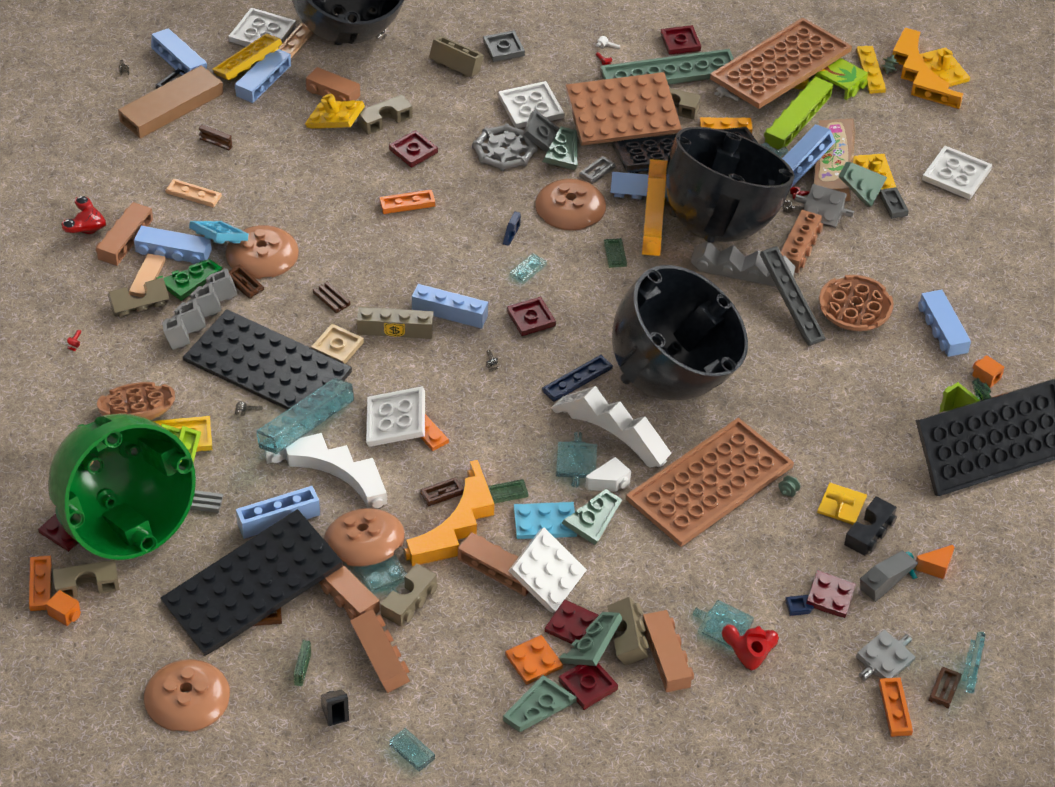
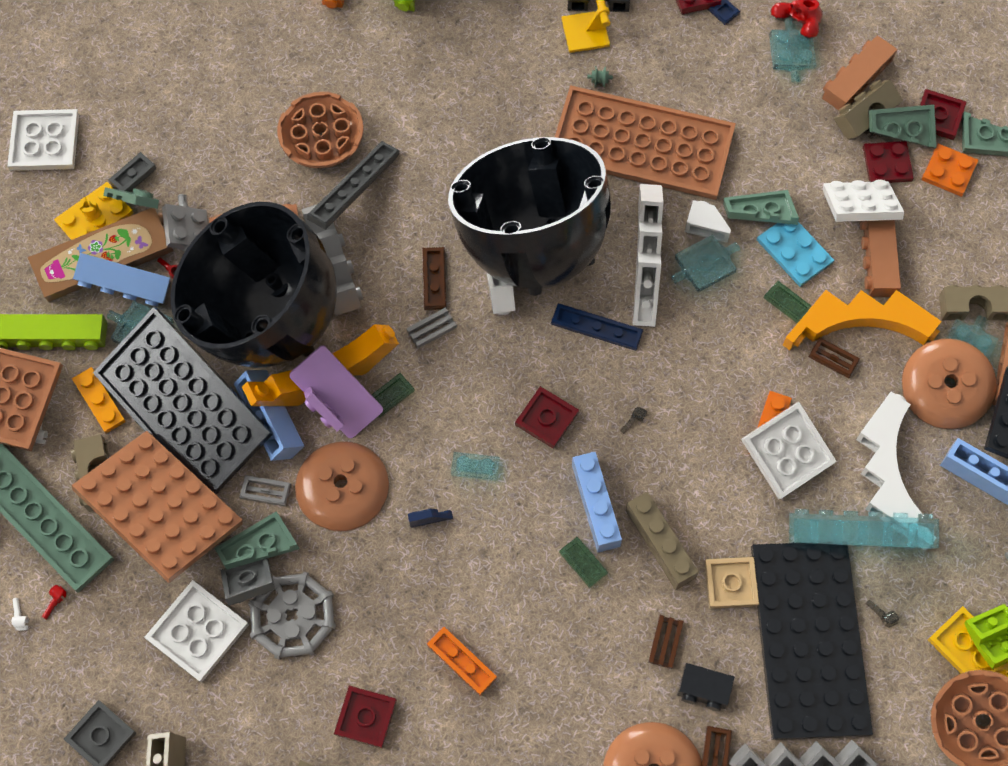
camera: 120 degrees left, 20 degrees up
(286, 295) = (705, 687): none -> black brick
(408, 286) = (583, 562): none -> clear green tile
(627, 206) = (335, 393): none -> lavender bracket
(944, 323) = (291, 51): light blue brick -> none

